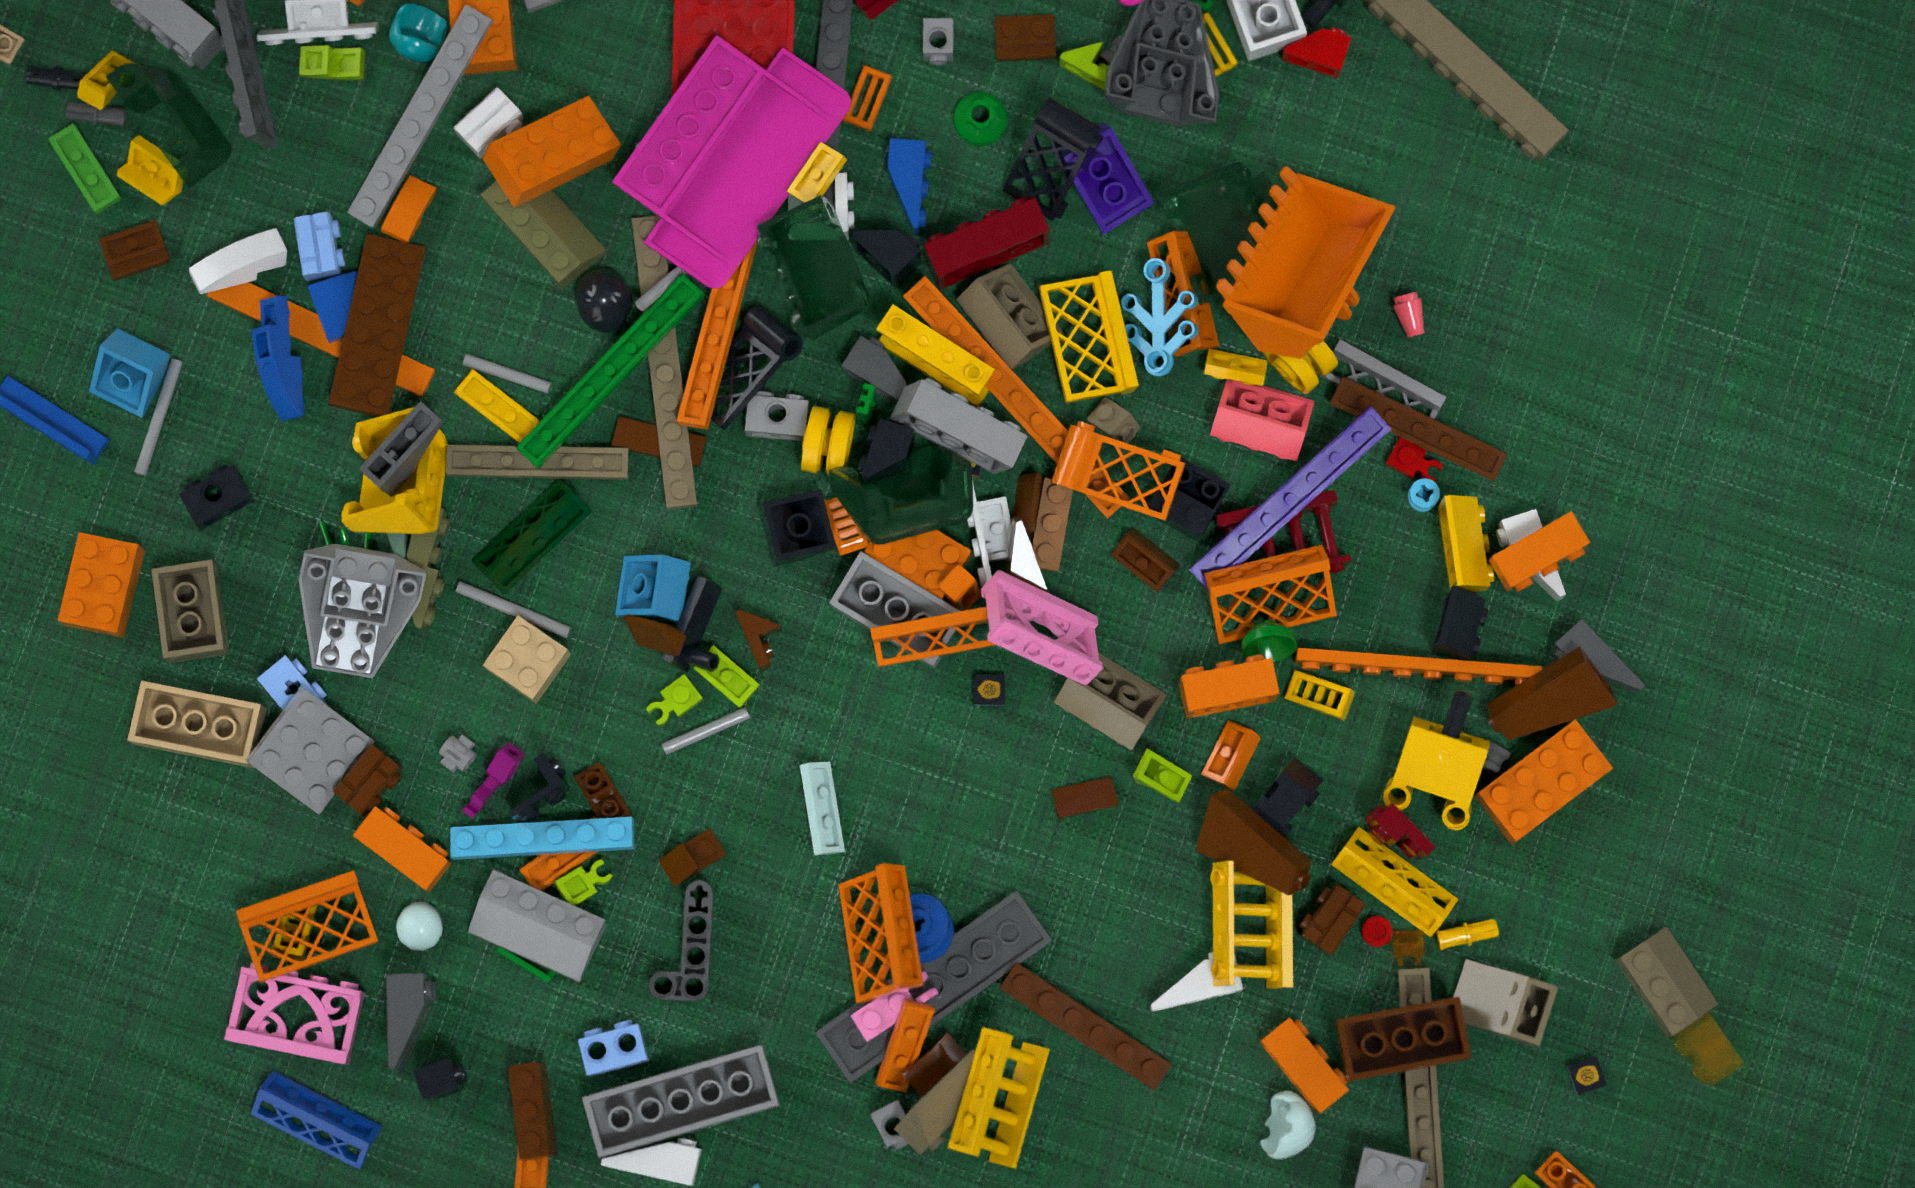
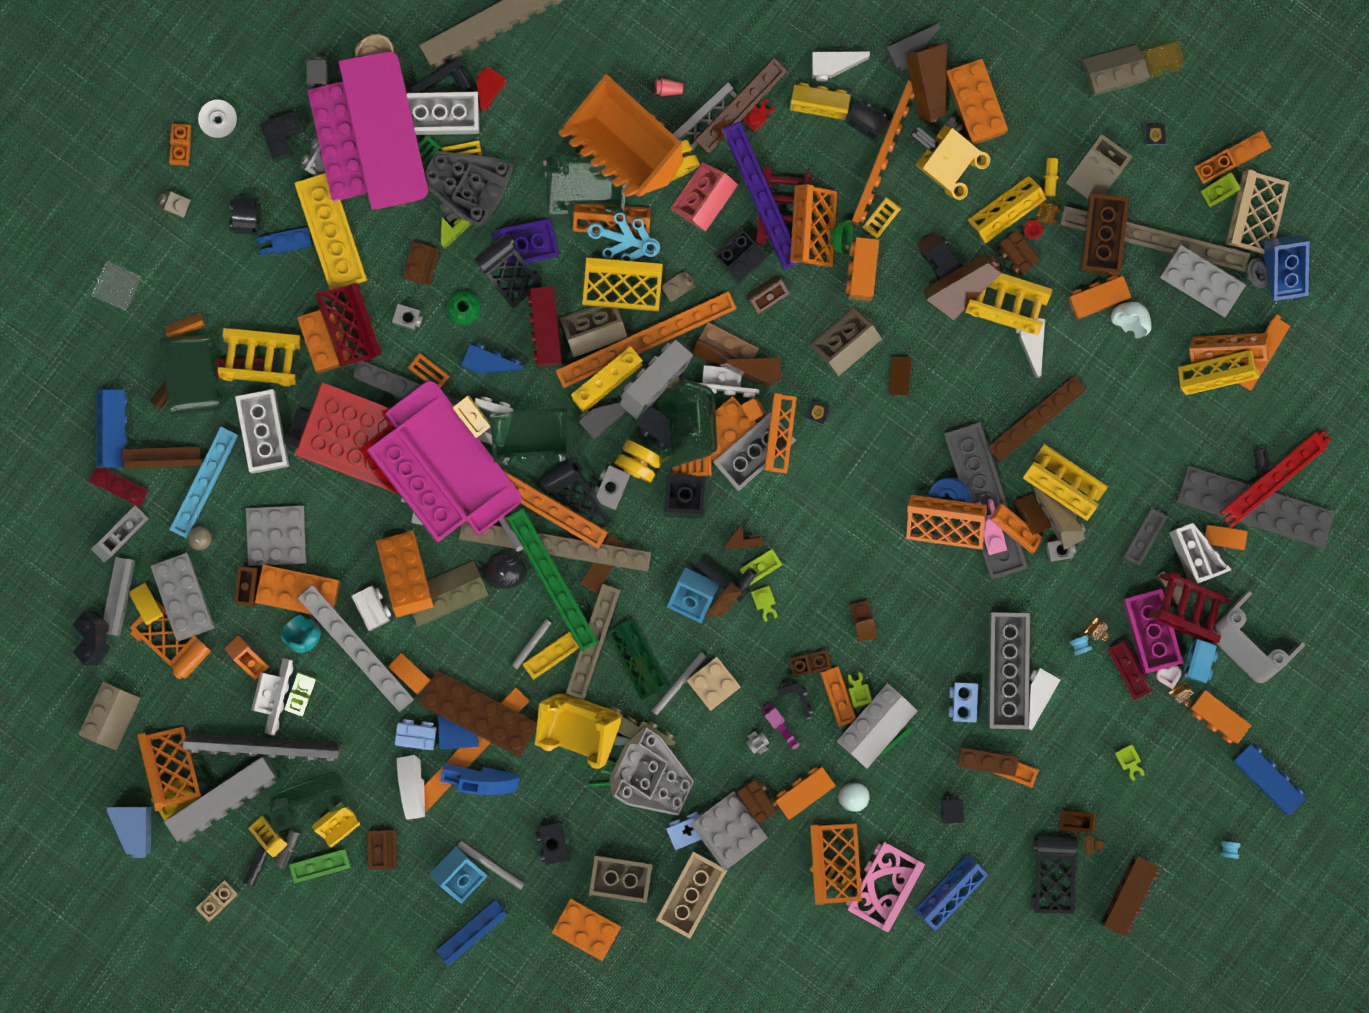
camera: 80 degrees left, 5 degrees up
(402, 450) = (564, 719): dark grey slope -> none
(407, 1011) = (903, 816): dark grey slope -> none
(542, 838) = (824, 707): medium azure plate -> none
(689, 943) = (914, 637): dark grey beam -> none
(705, 730) = (789, 589): light grey bar -> none
(822, 808) = (858, 534): light aqua plate -> none
(867, 404) = (622, 430): green tile -> none
(889, 253) = (534, 387): black slope -> none
(1070, 655) = (777, 375): bright pink fence -> none
(1080, 457) = (697, 313): orange piece -> none
(1162, 776) = (903, 325): lime slope -> none
(1231, 755) = (901, 281): orange slope -> none
(1235, 367) = (668, 202): yellow plate -> none
(1390, 825) = (976, 200): dark red plate -> none
(1423, 501) = (780, 119): medium azure wheel -> none
(1540, 553) = (841, 58): orange brick -> none

